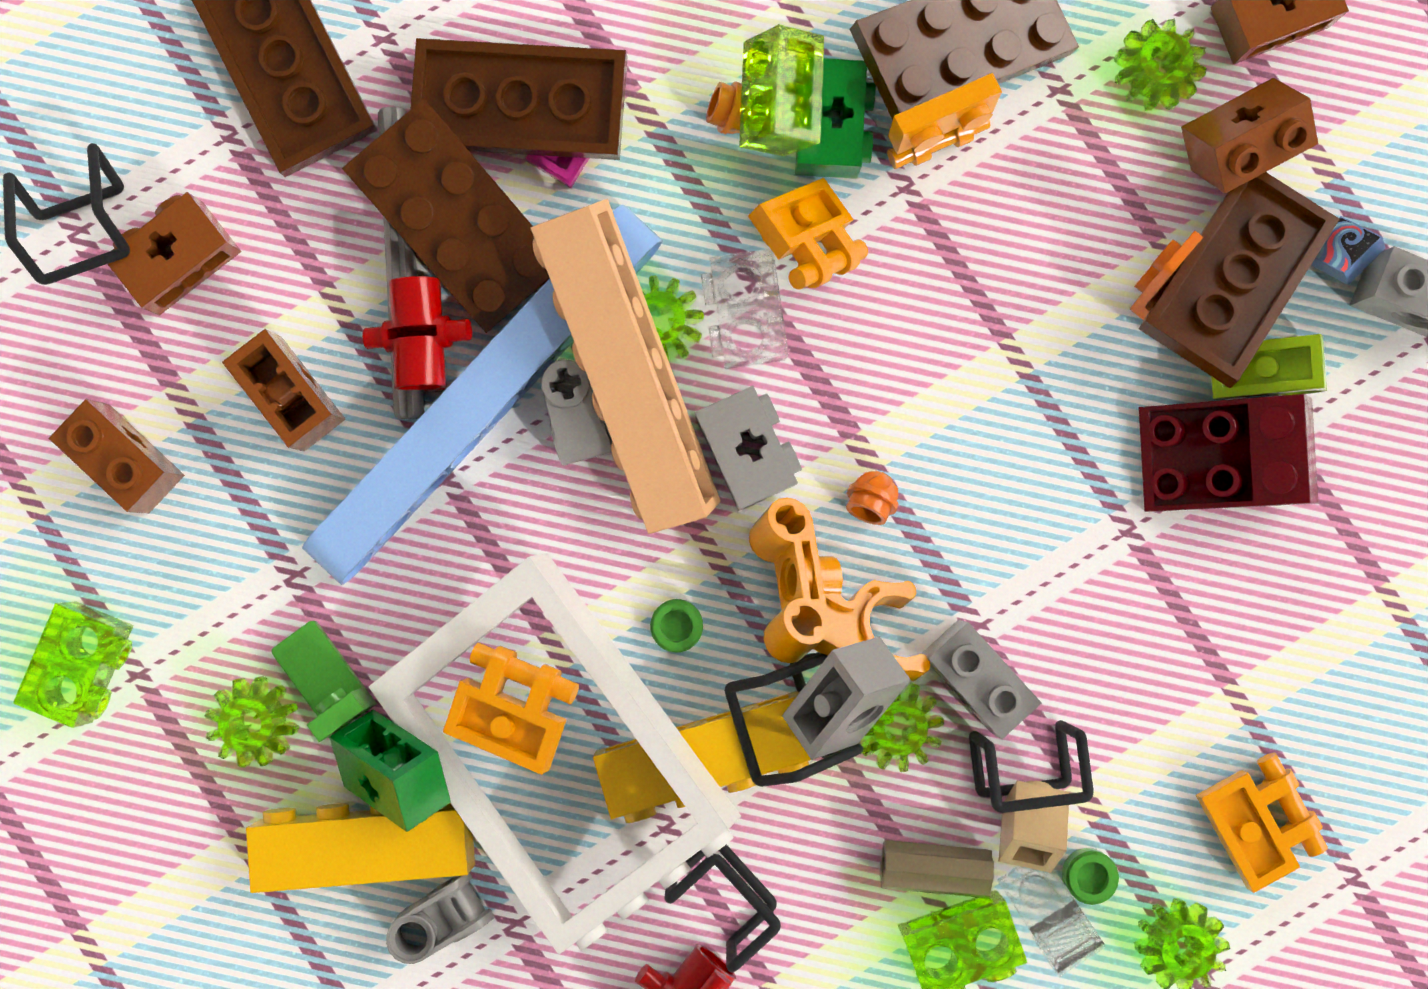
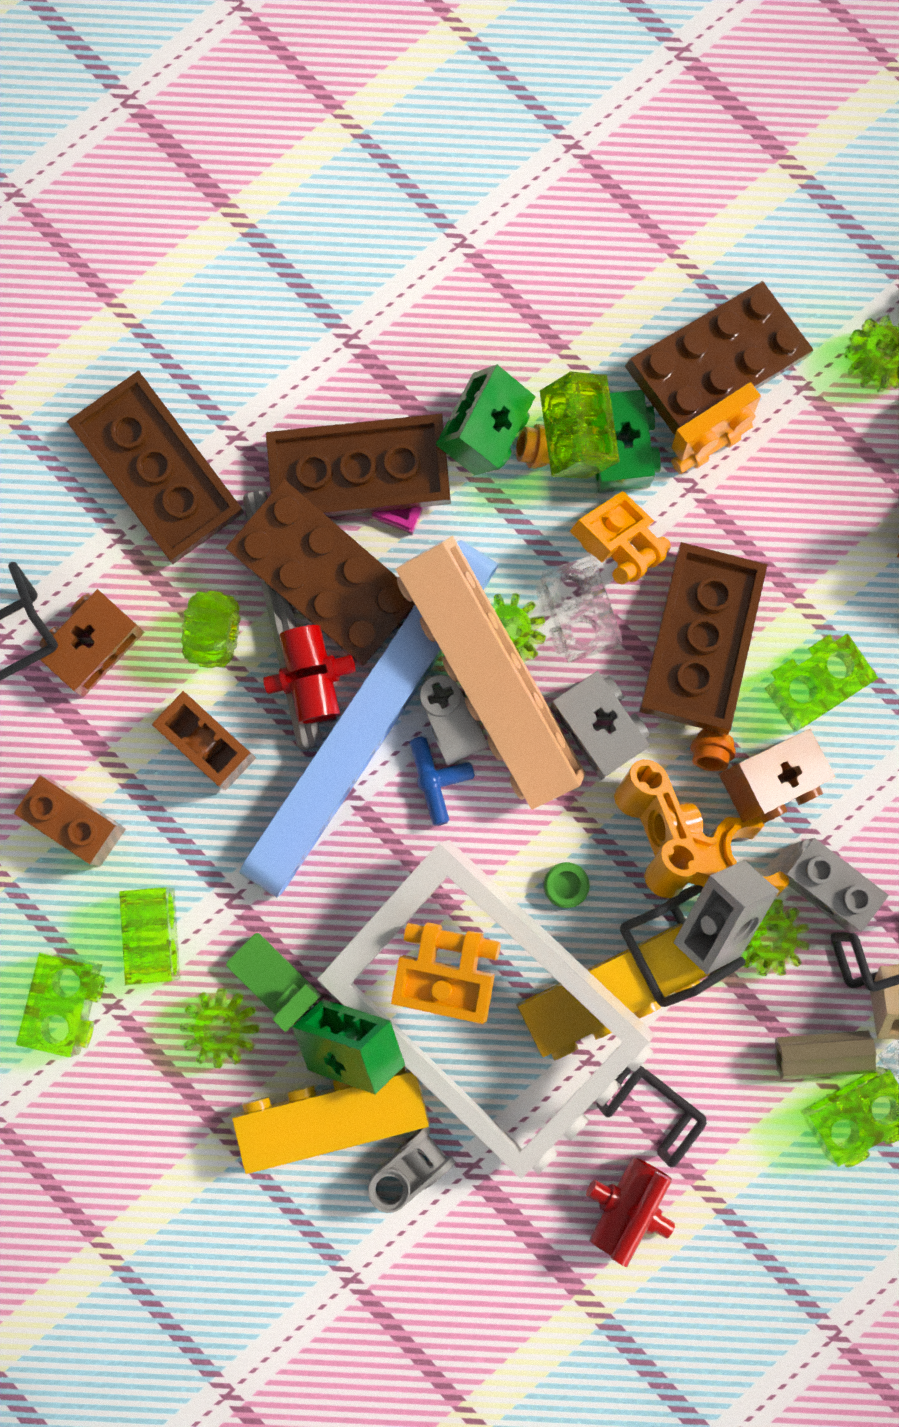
camera: 10 degrees left, 5 degrees down
(187, 604) = (149, 935): none -> clear neon green brick
(312, 261) = (210, 629): none -> clear neon green gear
(542, 479) = (432, 780): none -> blue piece
(676, 68) = (486, 420): none -> green brick
(885, 368) = (703, 638): none -> reddish brown plate
(968, 539) = (777, 776): none -> brick
(1015, 451) = (824, 688): none -> clear neon green brick

